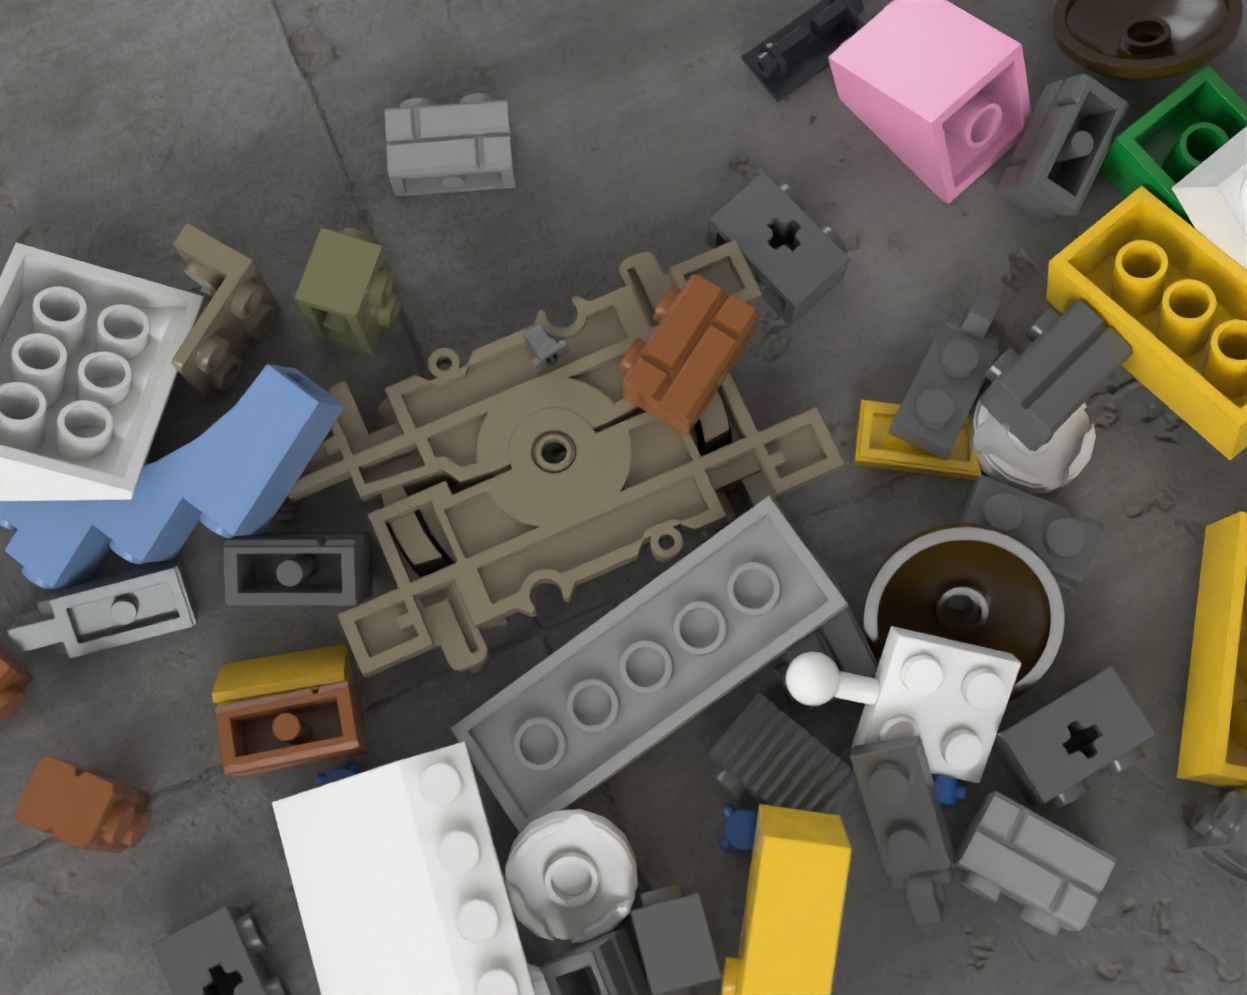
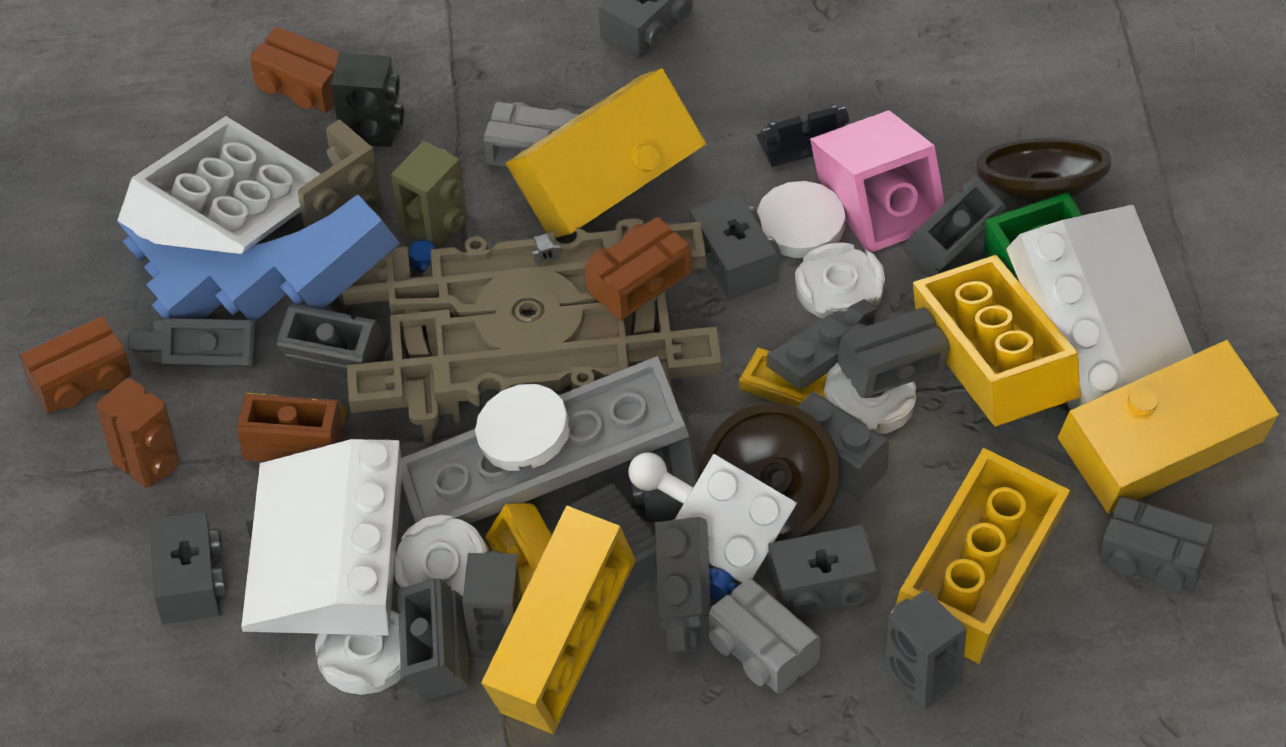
camera: 20 degrees right, 25 degrees down
(88, 118) = (295, 69): none -> dark orange brick
(202, 153) = (367, 97): none -> pearl dark grey brick
(364, 373) = (420, 255): none -> blue piece
(567, 158) = (606, 153): none -> yellow brick
(618, 653) = (522, 427): none -> white tile
(677, 818) = (520, 532): none -> yellow slope
(847, 174) = (802, 217): none -> white tile
(928, 261) = (838, 277): none -> white tile

